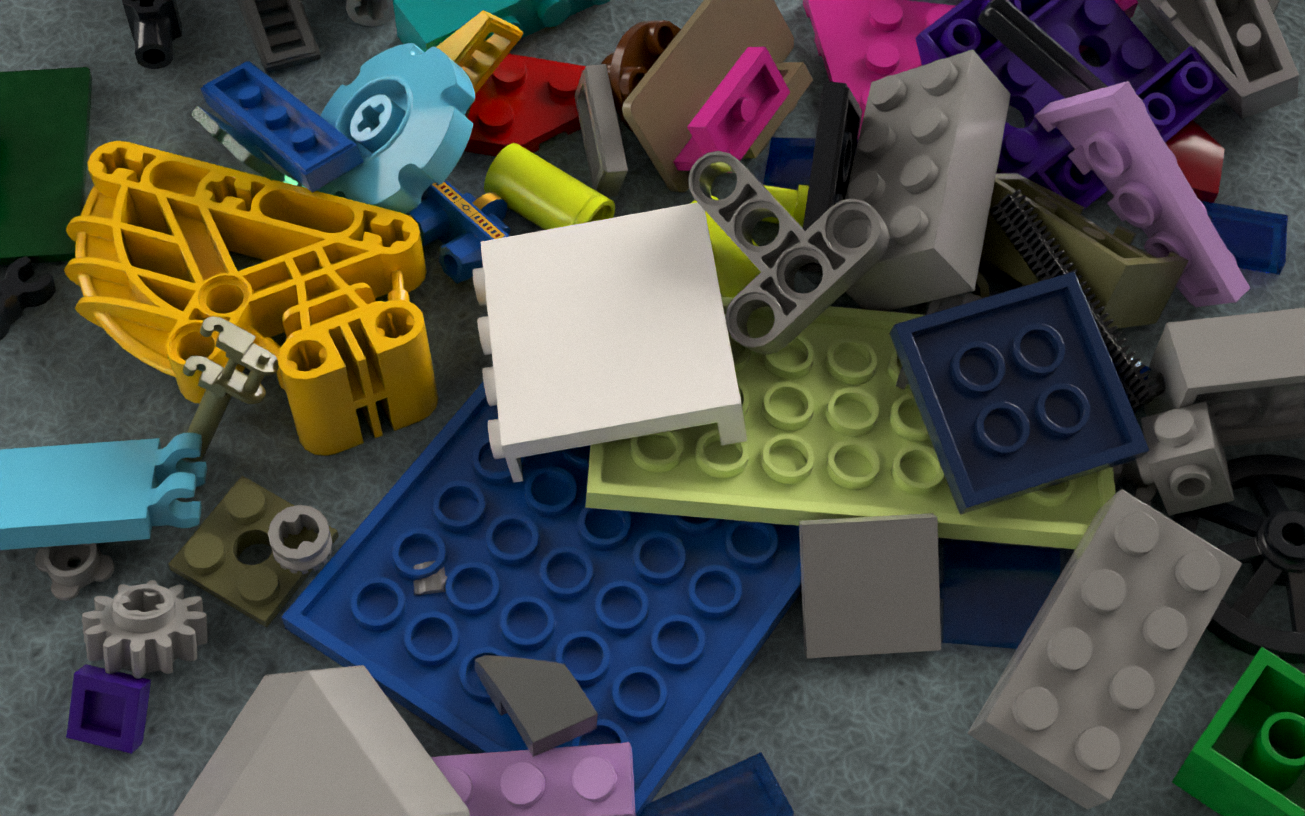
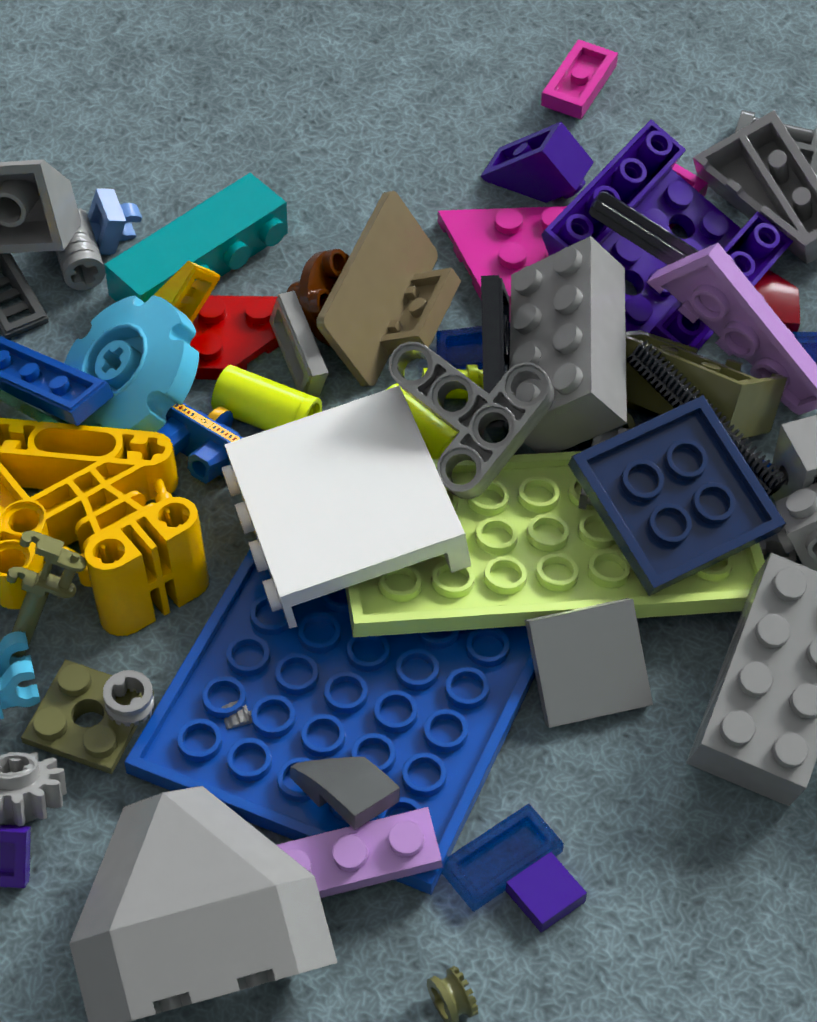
camera: 10 degrees left, 5 degrees down
(736, 109) = (406, 312): dark pink panel -> none
(994, 591) = (684, 655): clear blue piece -> none

